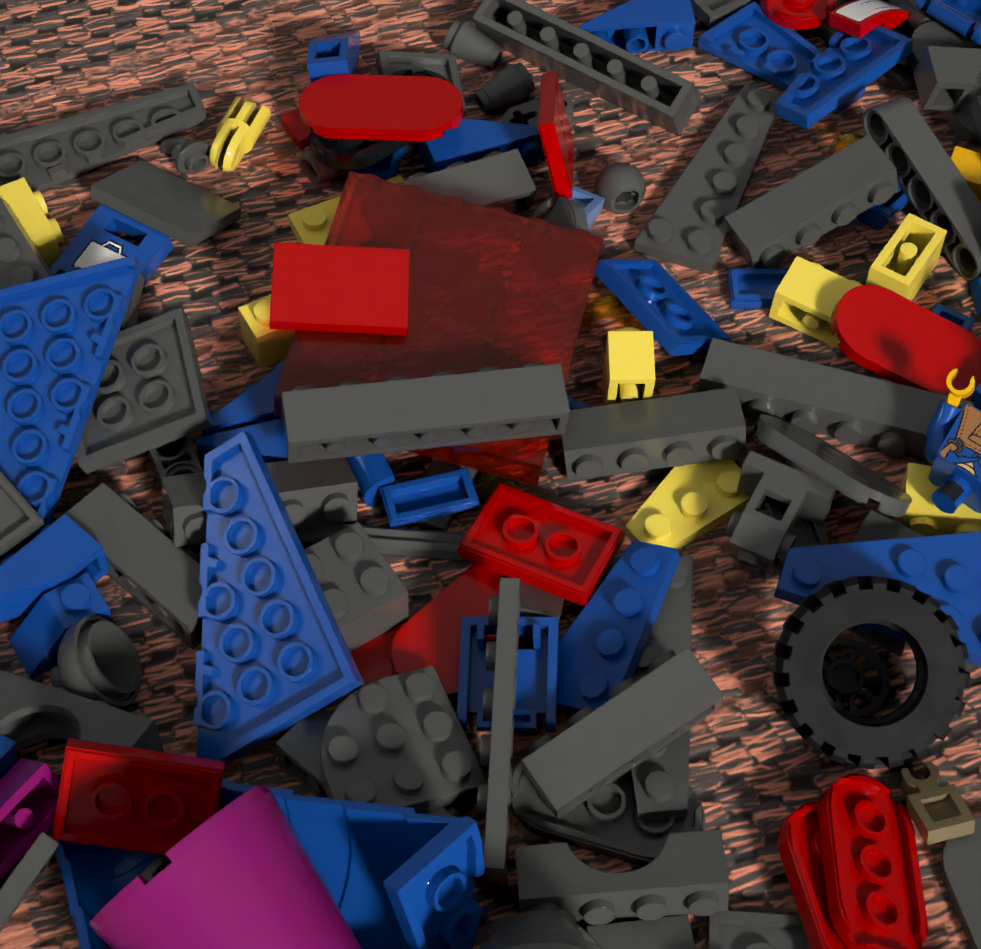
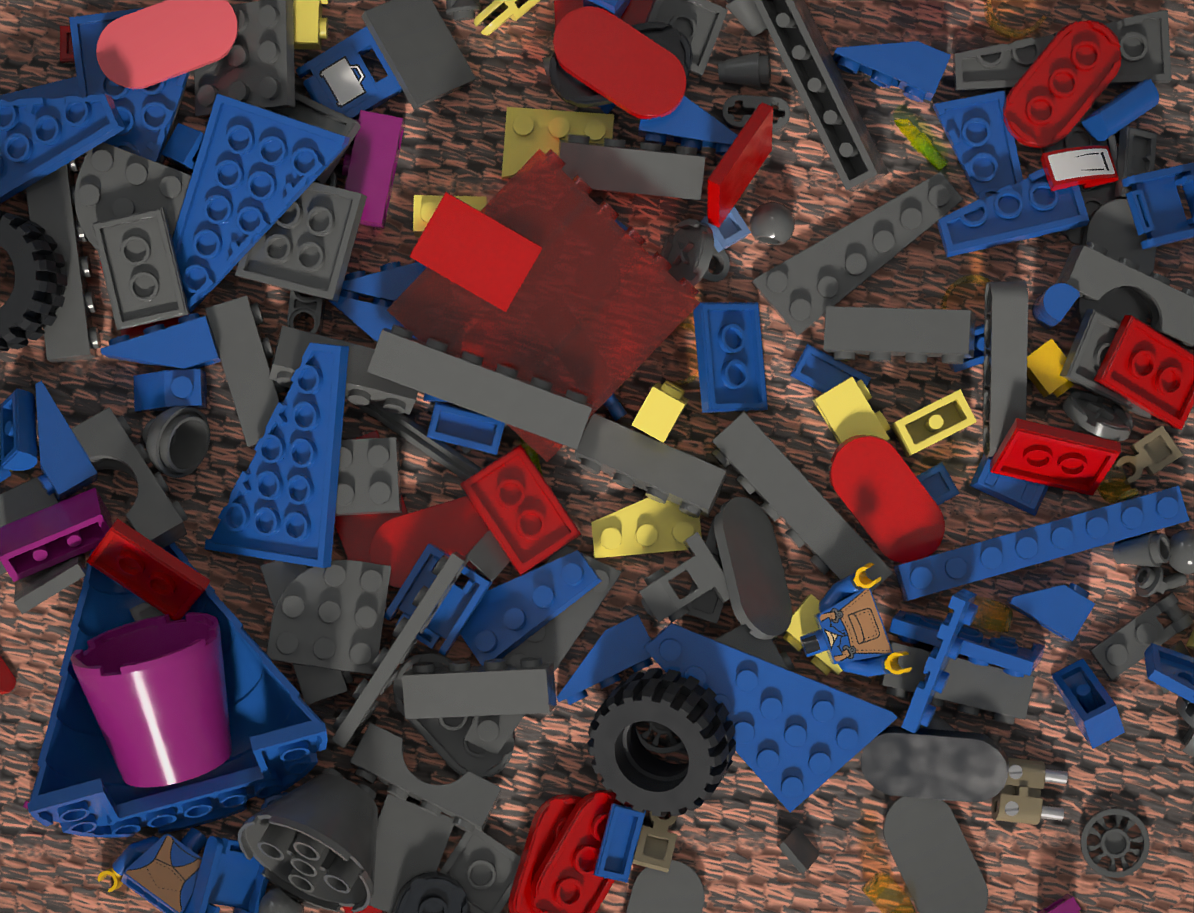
camera: 30 degrees right, 30 degrees up
(170, 287) = (374, 164): none -> magenta brick
(710, 77) = (921, 143): none -> clear neon green piece
(743, 633) = (613, 652): none -> blue slope
(896, 823) = (619, 843): none -> blue tile
(940, 106) = (1054, 304): none -> blue brick

